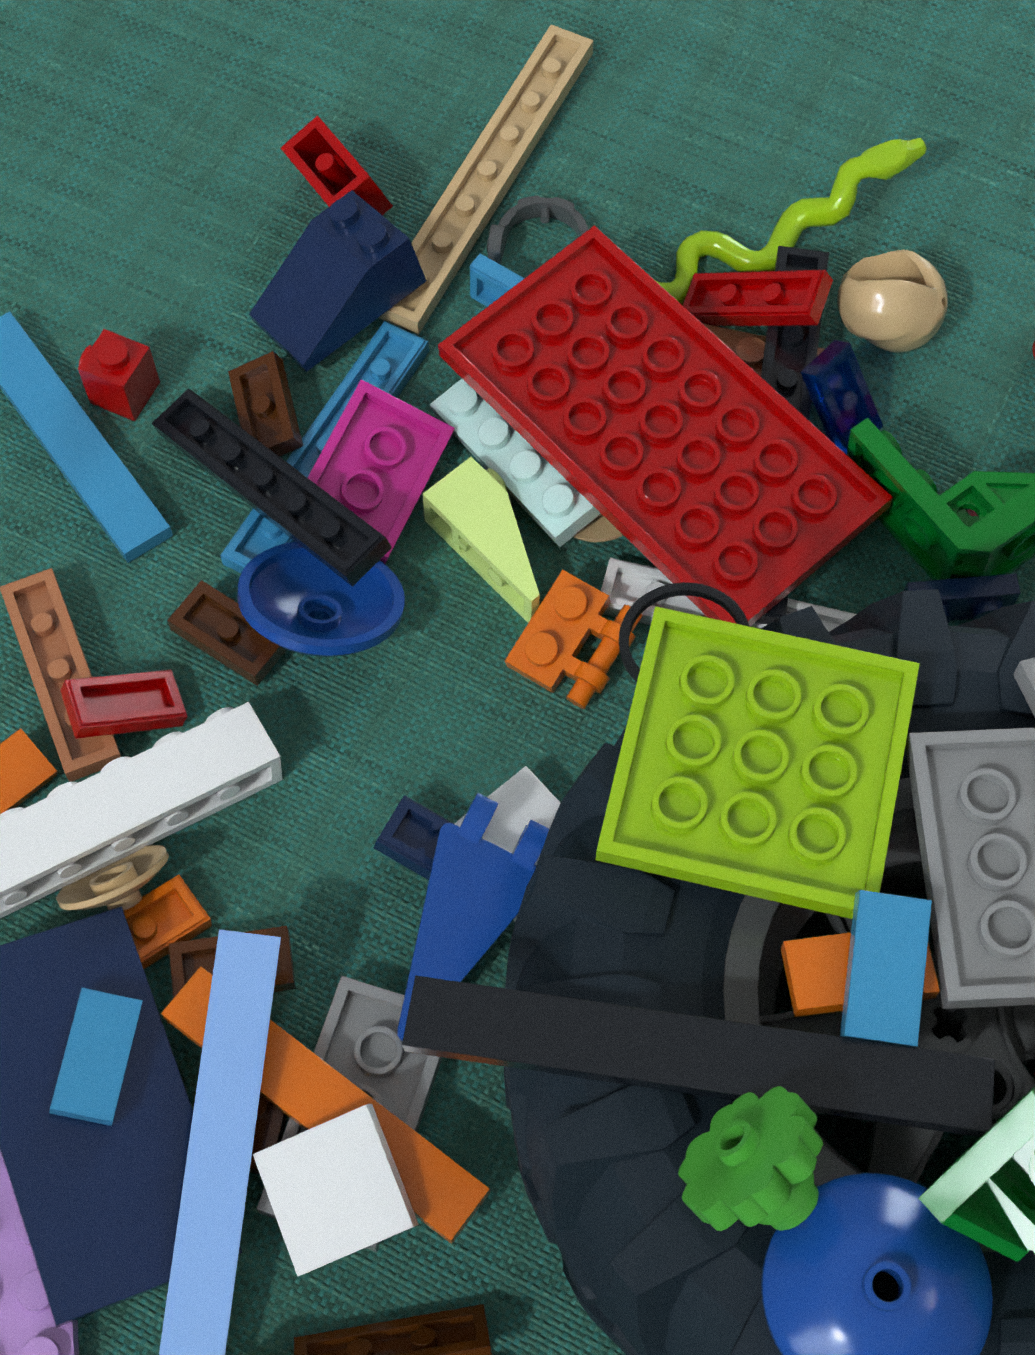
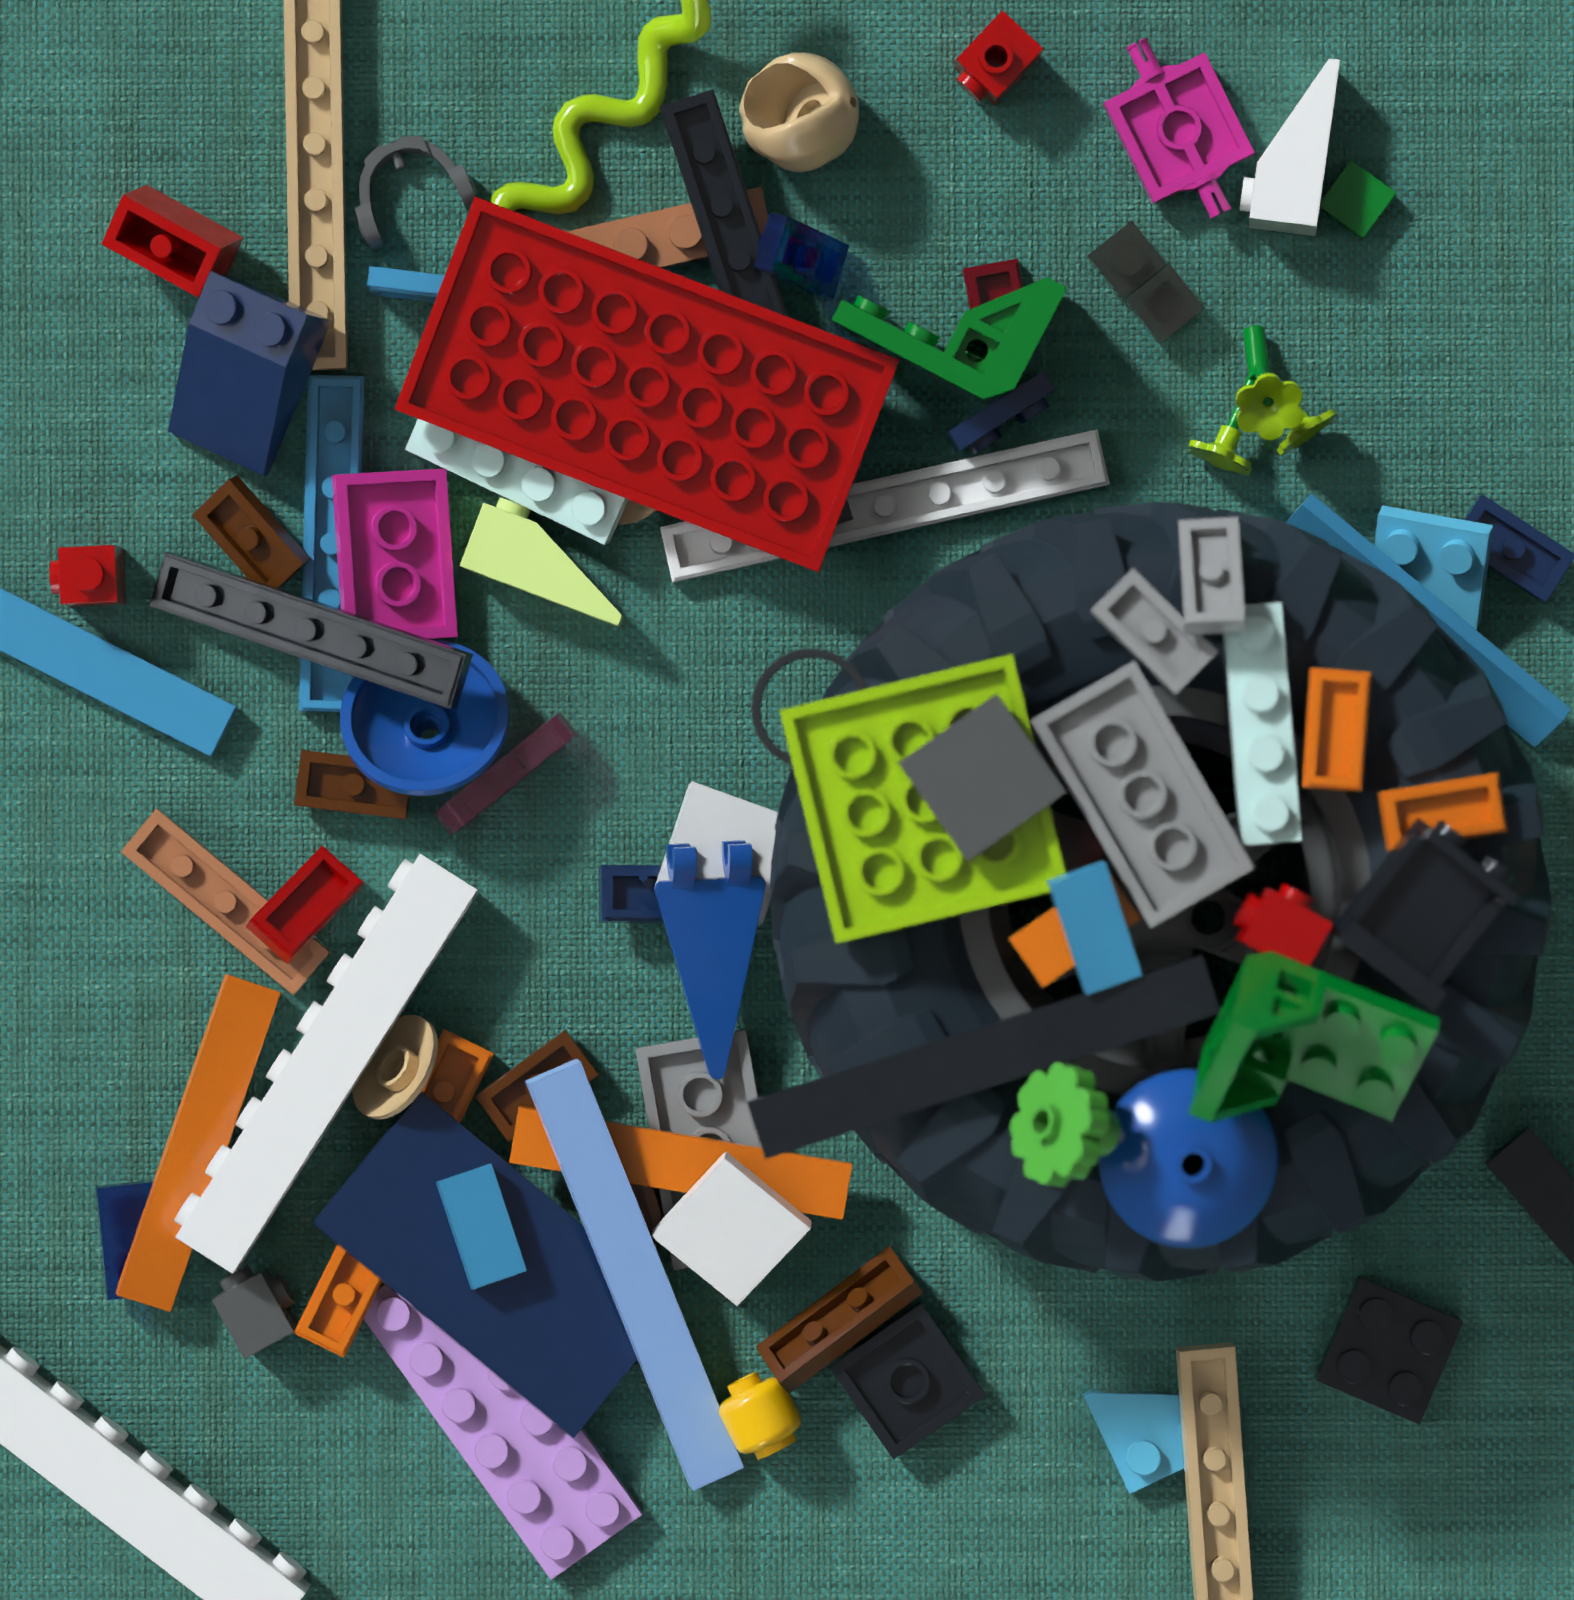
camera: 25 degrees left, 25 degrees up
(363, 685) = (505, 774): none -> clear pink beam
(559, 631) = (653, 626): orange plate -> none
(758, 297) = (666, 183): red tile -> none
(834, 757) = (982, 777): none -> dark grey tile

